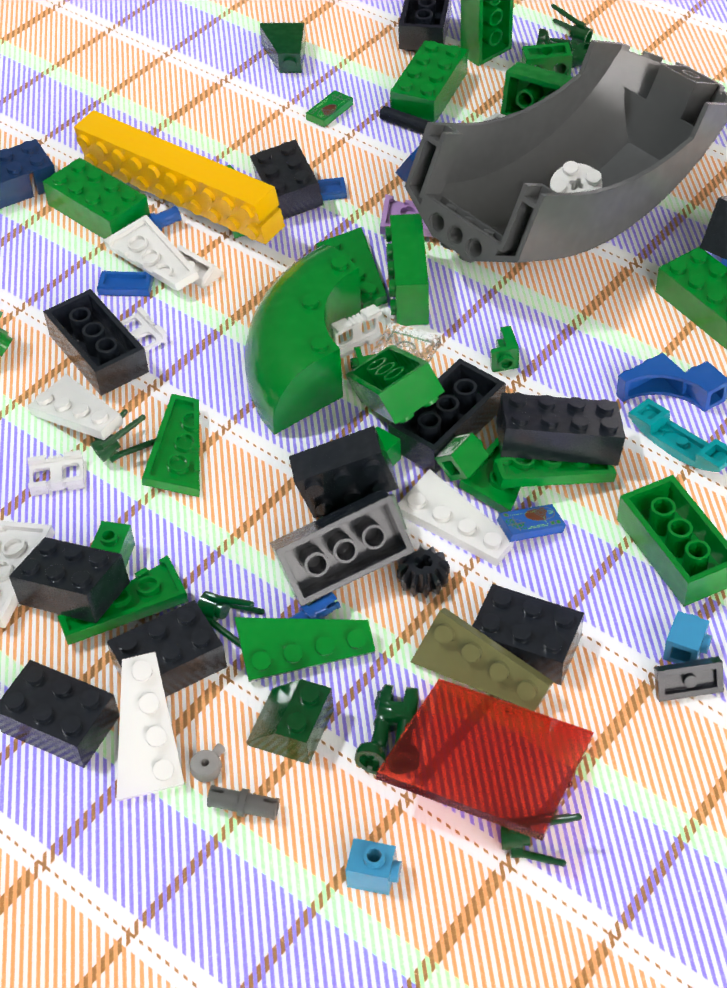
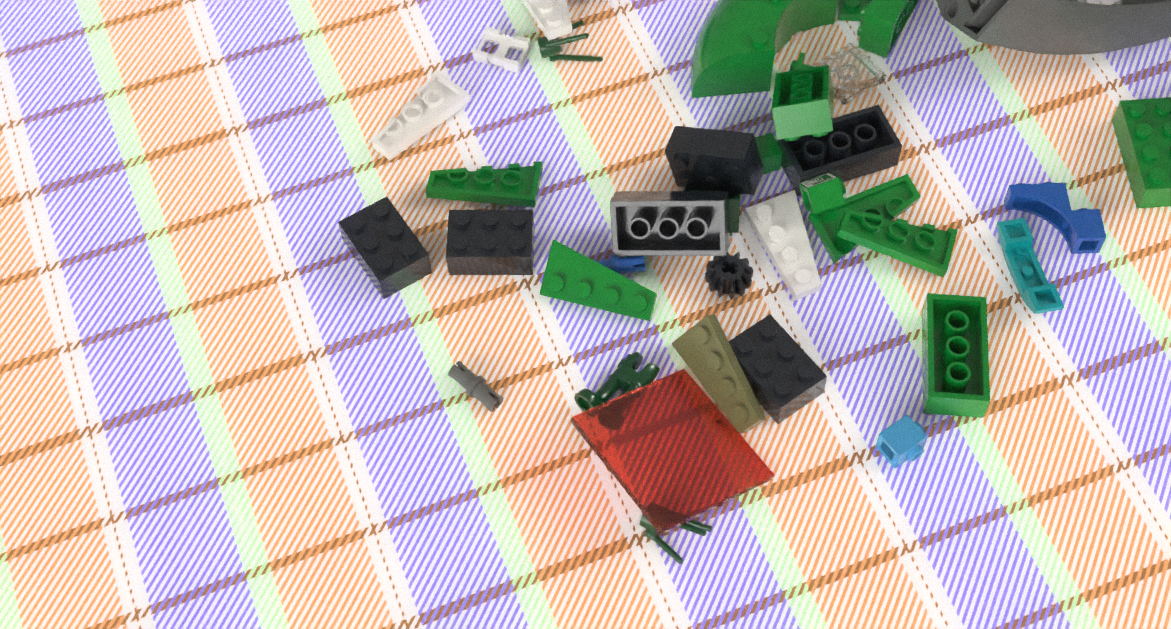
camera: 30 degrees right, 10 degrees up
(70, 579) = (454, 146): black brick -> none
(115, 538) = (505, 133): green brick -> none
(146, 738) = (434, 301): white wing -> none
(175, 453) = (603, 75): green wing -> none
(206, 764) = (469, 343): light grey piece -> none
(218, 607) = (552, 223): dark green plant -> none
(293, 720) = (552, 344): dark green slope -> none
(354, 324) = (814, 43): white piece -> none
(372, 866) = (535, 485): dark azure brick -> none
(506, 353) = (929, 120): green bracket -> none
(531, 522) = (845, 278): blue tile -> none
(560, 429) = (920, 209): black brick -> none
(689, 679) = (879, 474): plate -> none

